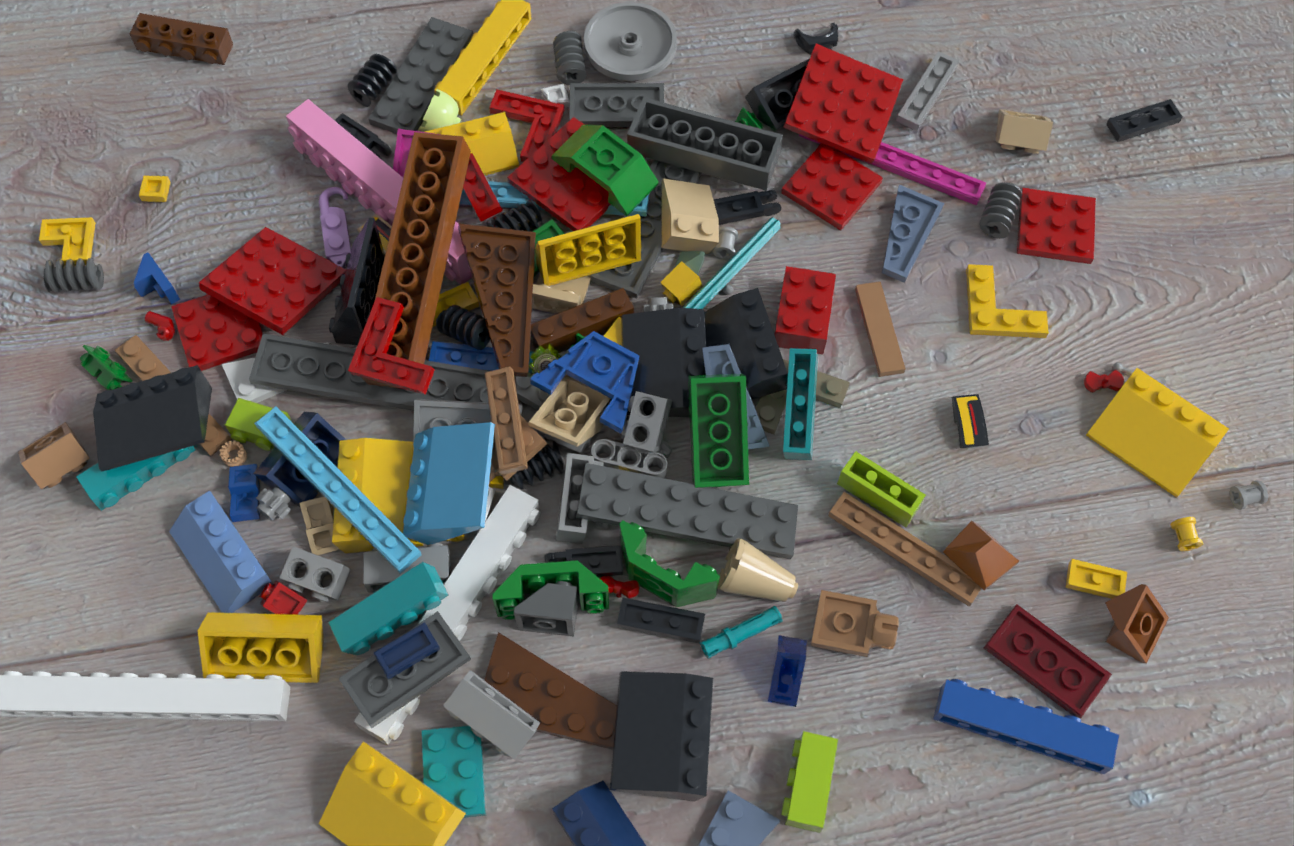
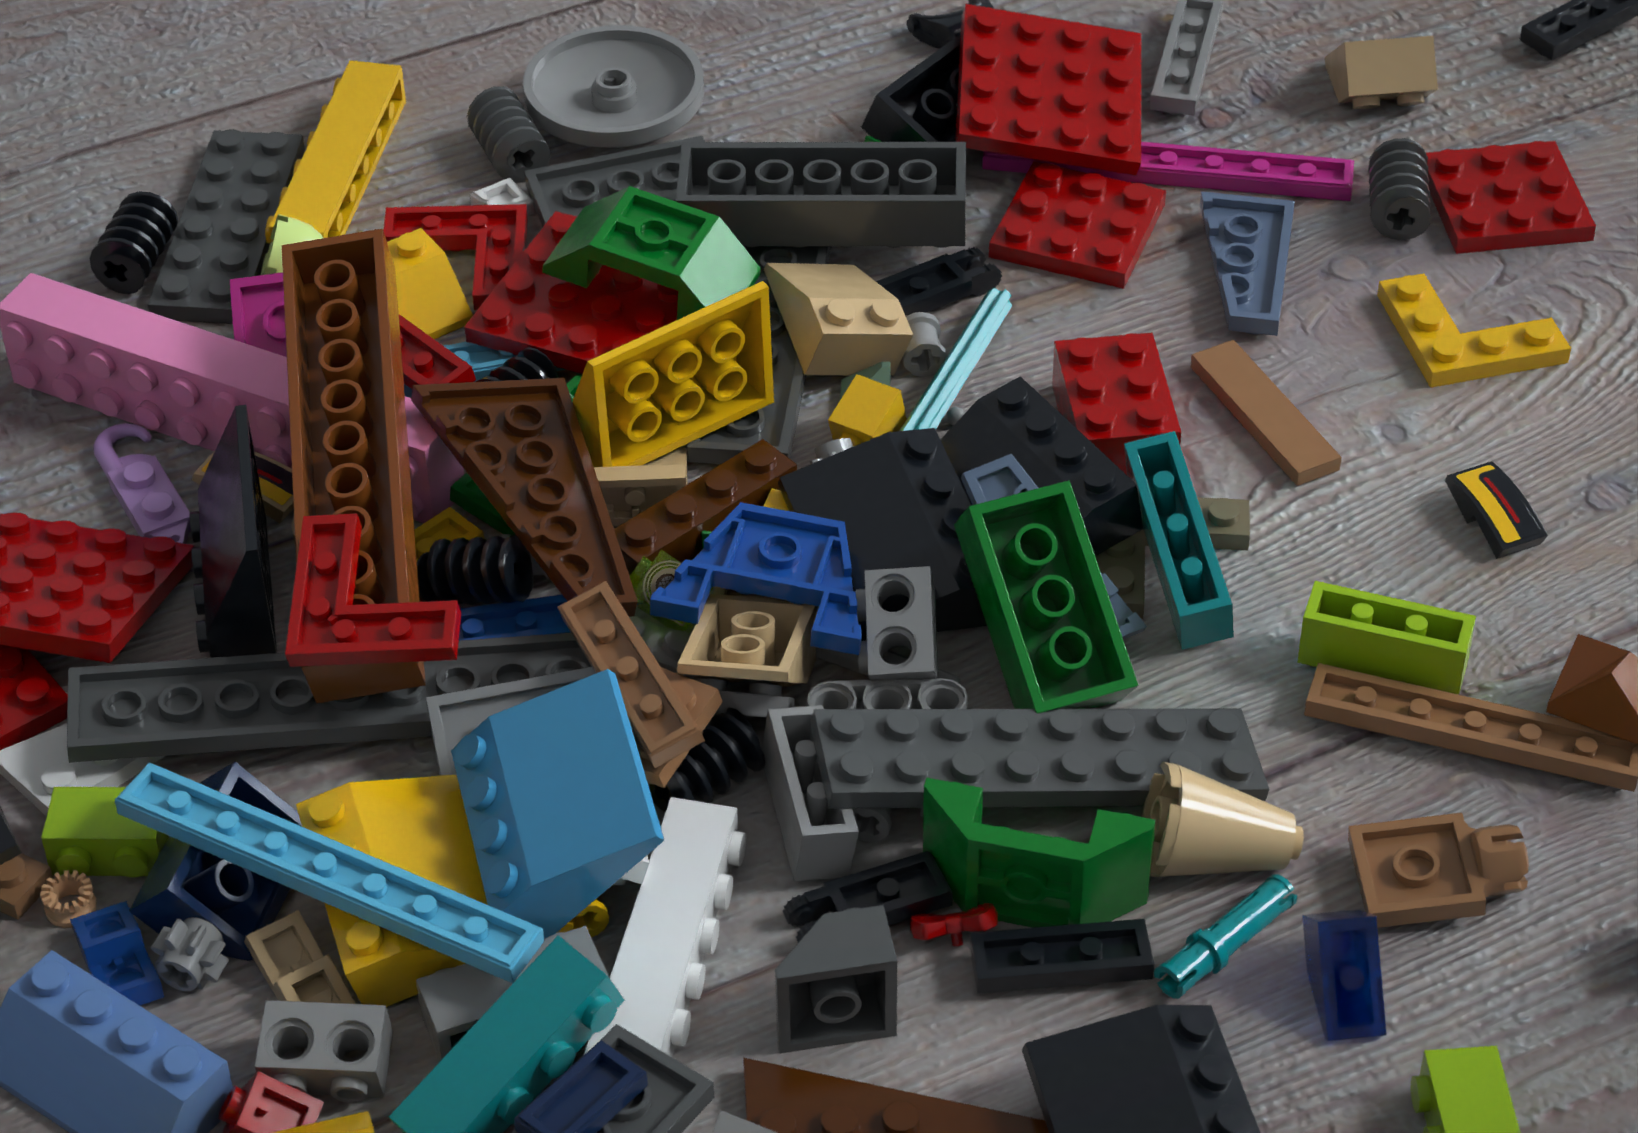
camera: 15 degrees left, 20 degrees down
(532, 577) = (780, 919): green slope -> none

